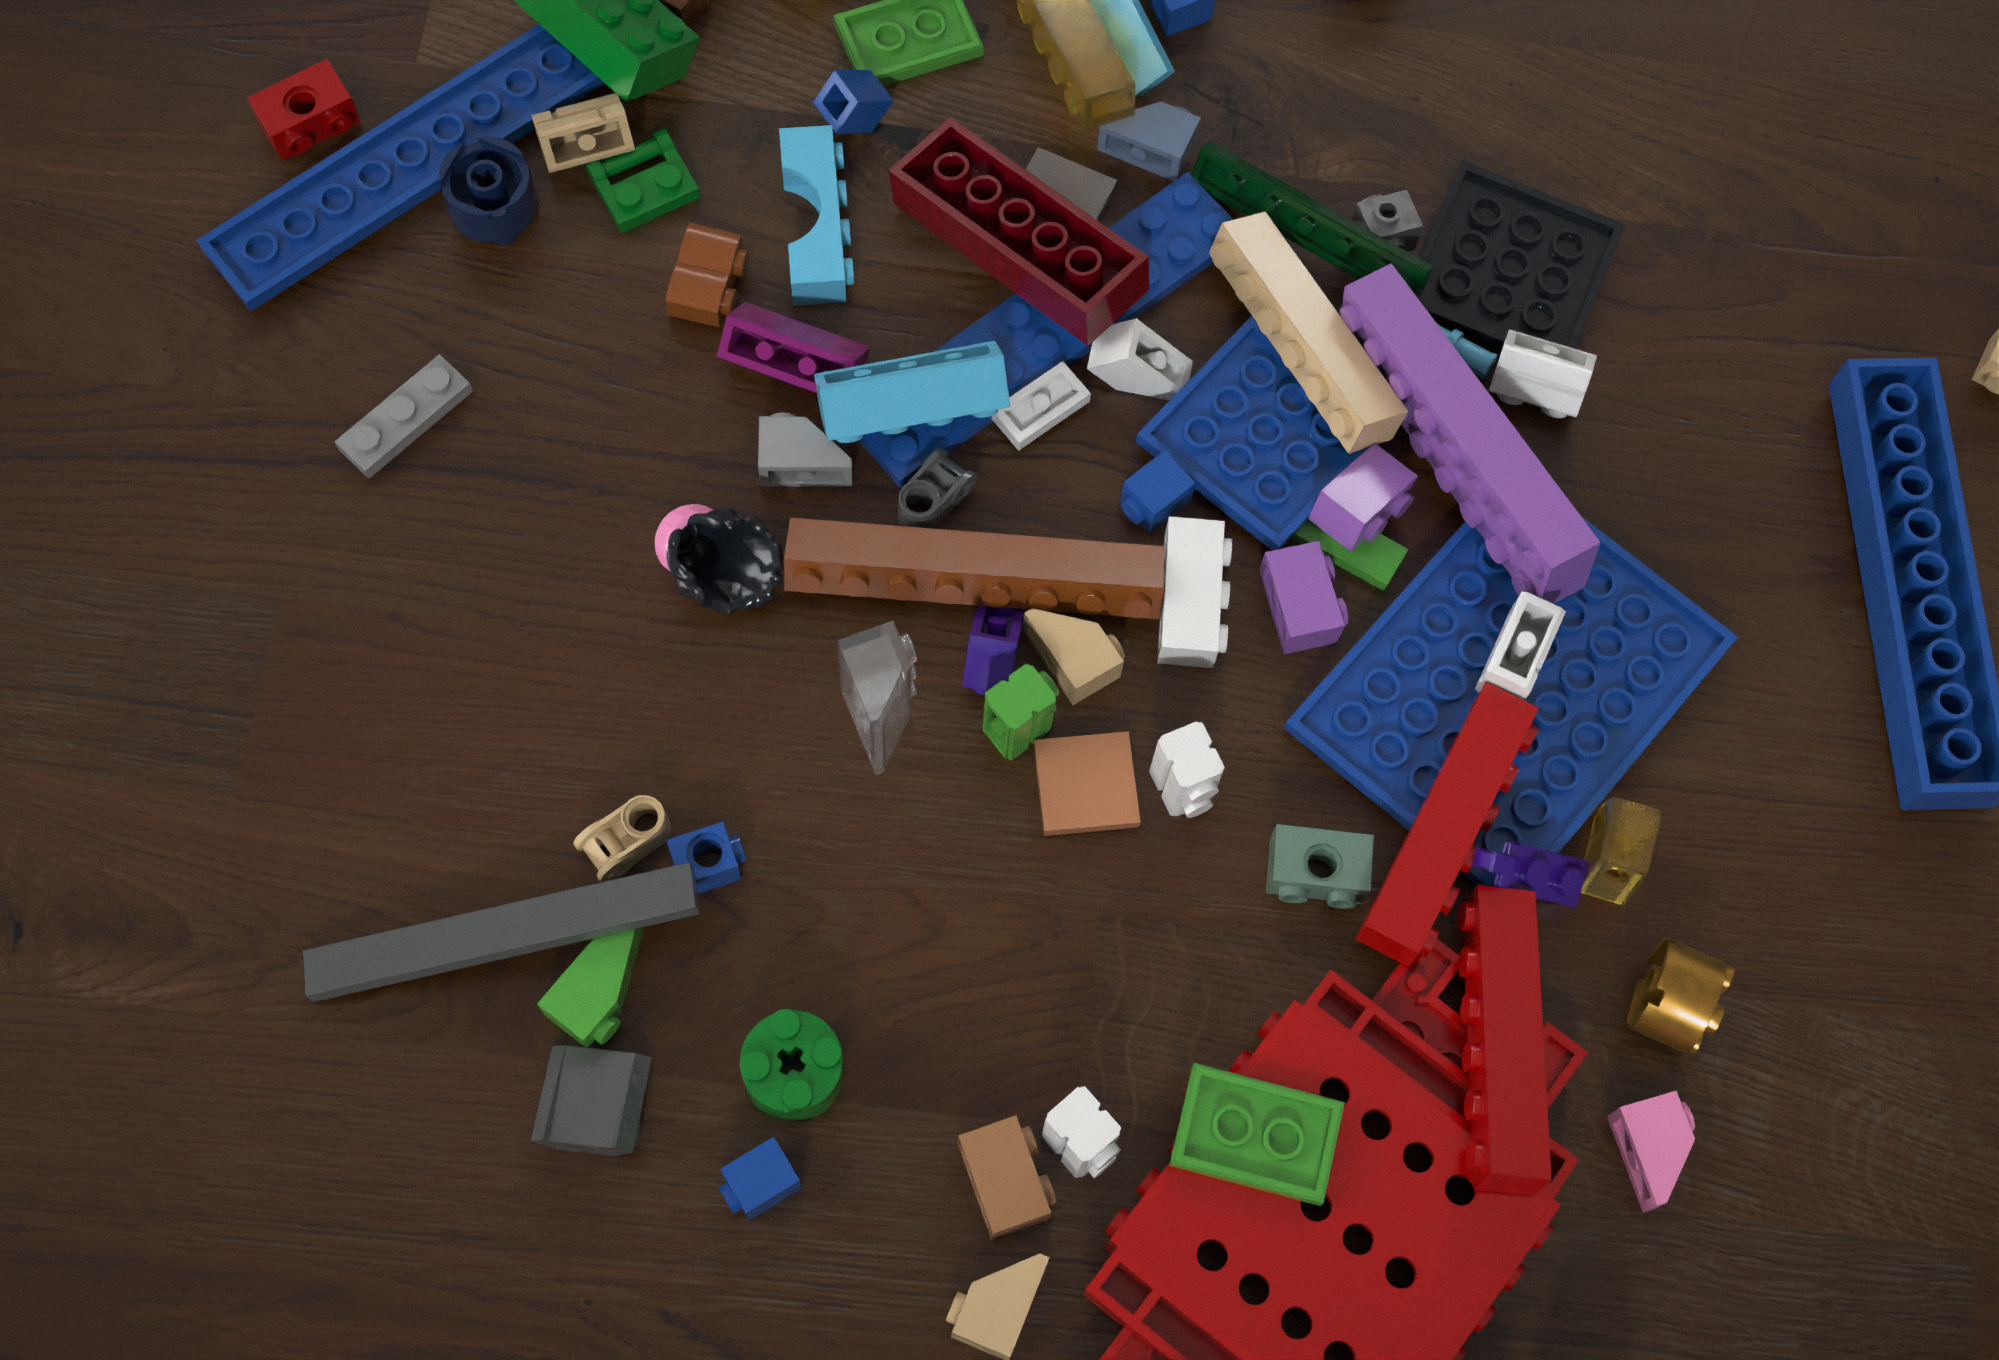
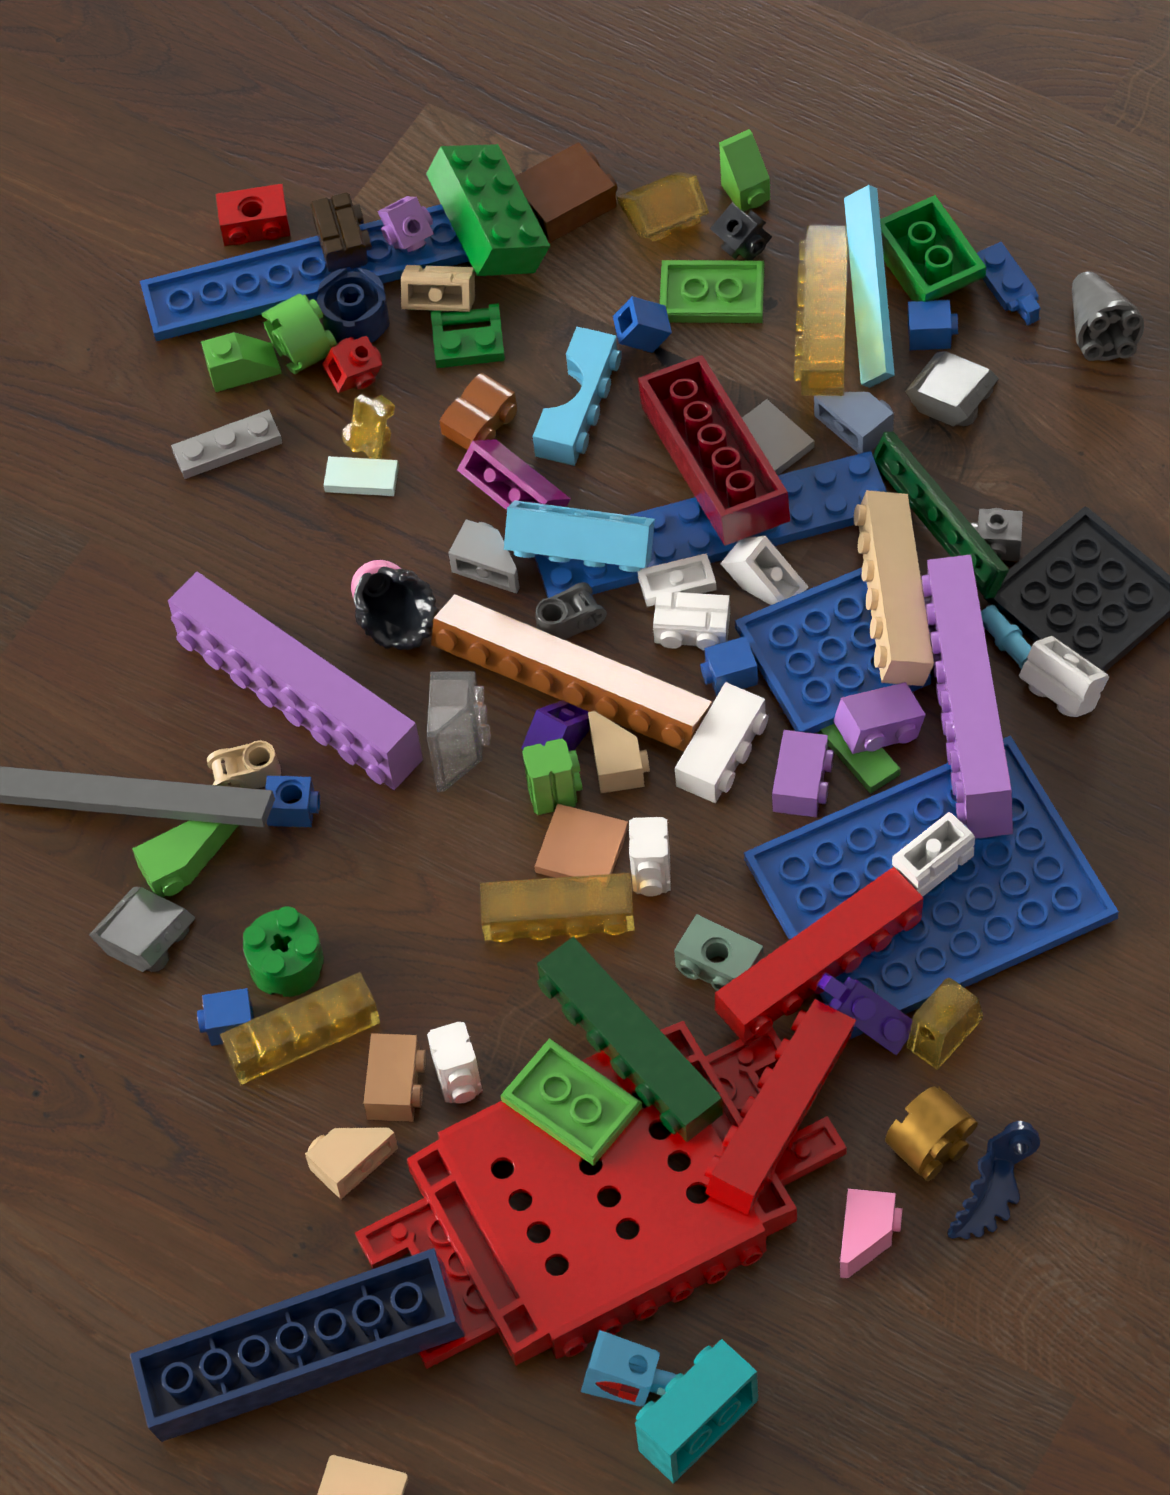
camera: 35 degrees right, 10 degrees down
(371, 303) = (239, 360): none -> bright green slope
(430, 99) = (340, 233): none -> dark brown brick
(437, 243) = (298, 332): none -> bright green brick
(511, 63) = (406, 224): none -> medium lavender brick
(522, 262) = (353, 364): none -> red brick
(582, 335) = (368, 426): none -> clear yellow hips
(594, 401) = (361, 476): none -> light aqua tile
(641, 700) = (295, 681): none -> medium lavender brick
(859, 1159) = (300, 1028): none -> clear yellow brick
(1084, 450) = (691, 619): none -> white brick
(1099, 874) = (557, 907): none -> clear yellow brick
(1240, 68) = (951, 389): none -> dark grey slope
(1294, 1027) = (629, 1039): none -> dark green brick
(1769, 966) = (996, 1182): none -> dark blue plant

